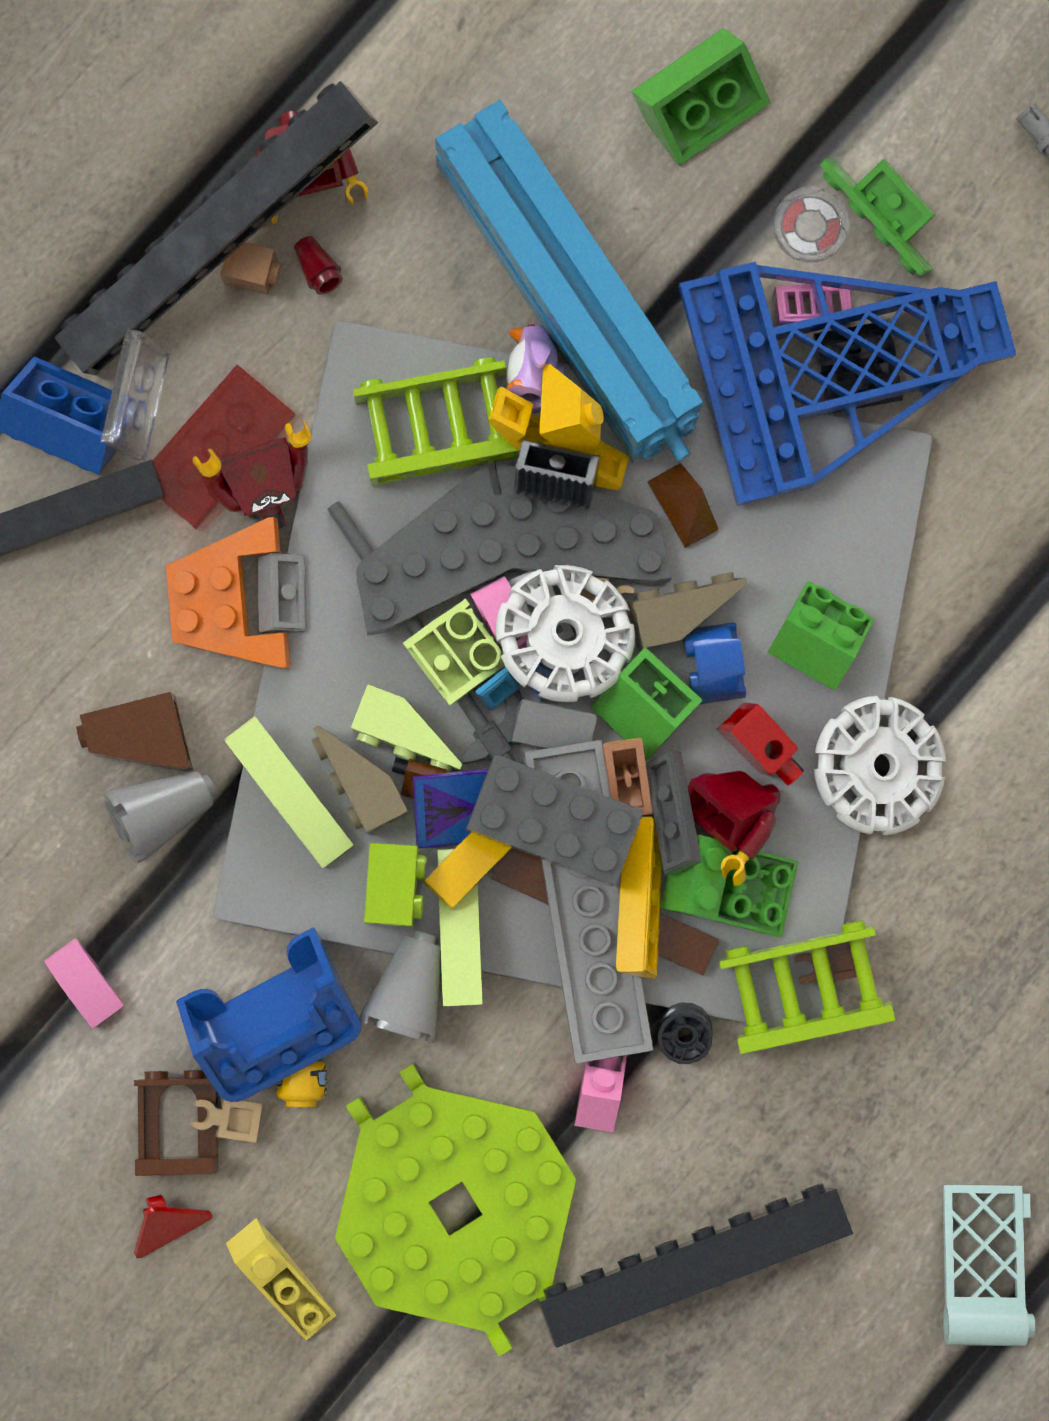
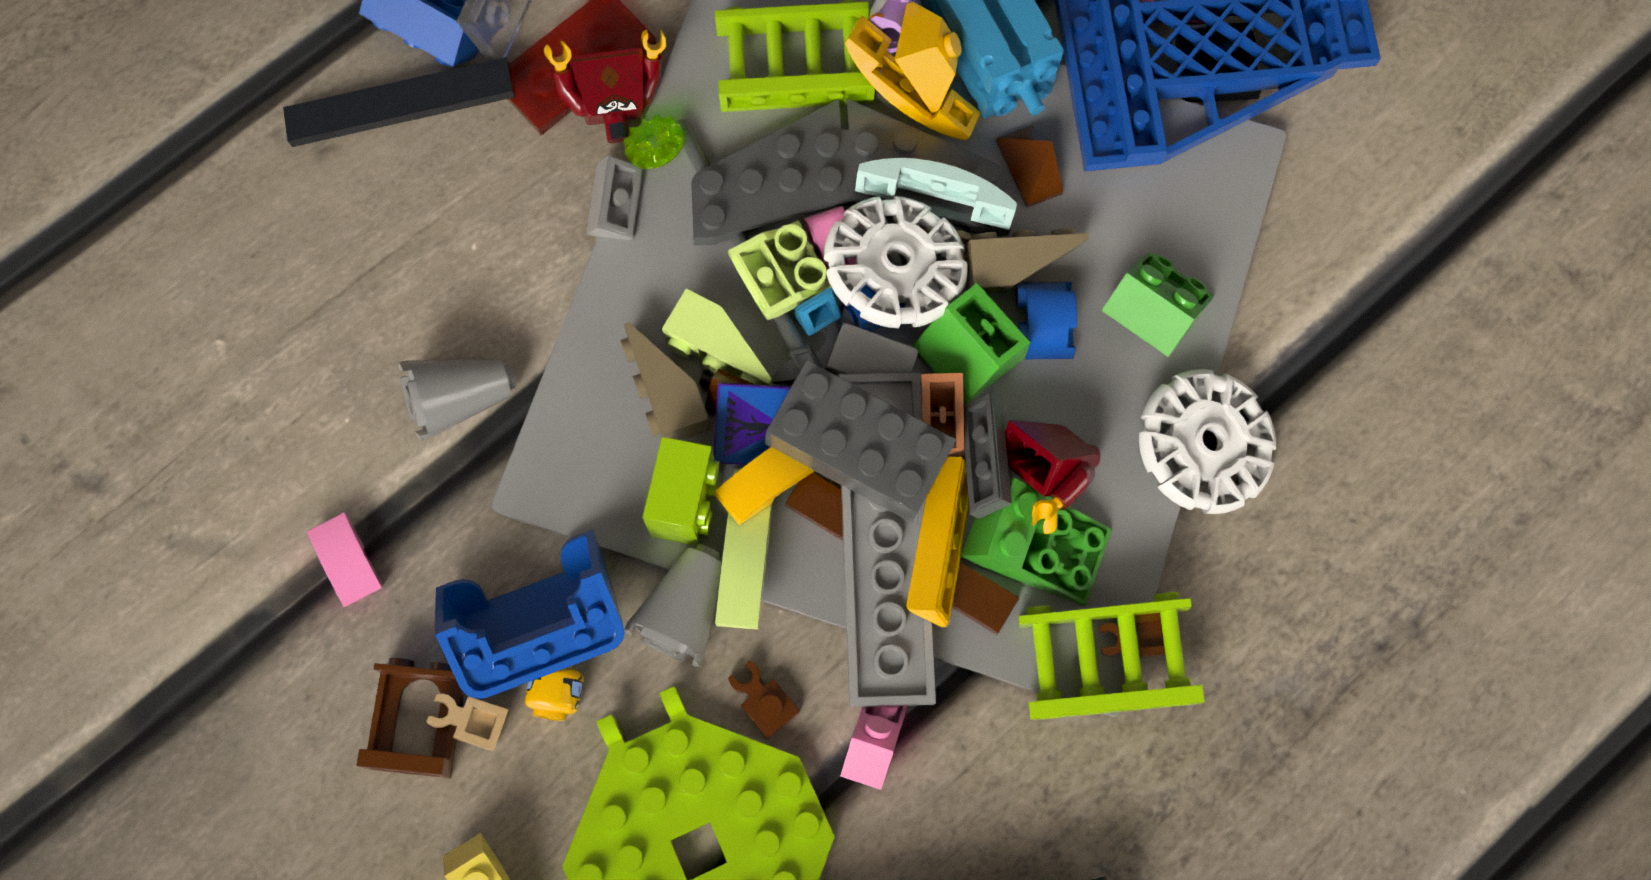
camera: 10 degrees right, 10 degrees down
(138, 732) = (446, 315): reddish brown slope -> none
(165, 1224) = (381, 826): red piece -> none
(210, 599) = (543, 193): orange wing -> none
(288, 792) = (589, 389): yellowish green slope -> none
(327, 532) = (669, 142): none -> clear neon green gear
(498, 1067) = (767, 704): none -> reddish brown plate
(556, 474) = (906, 108): black brick -> none
(647, 562) = (940, 181): none -> light aqua slope
(687, 1048) = (973, 710): black wheel -> none
(749, 732) = (1080, 387): red torso -> none

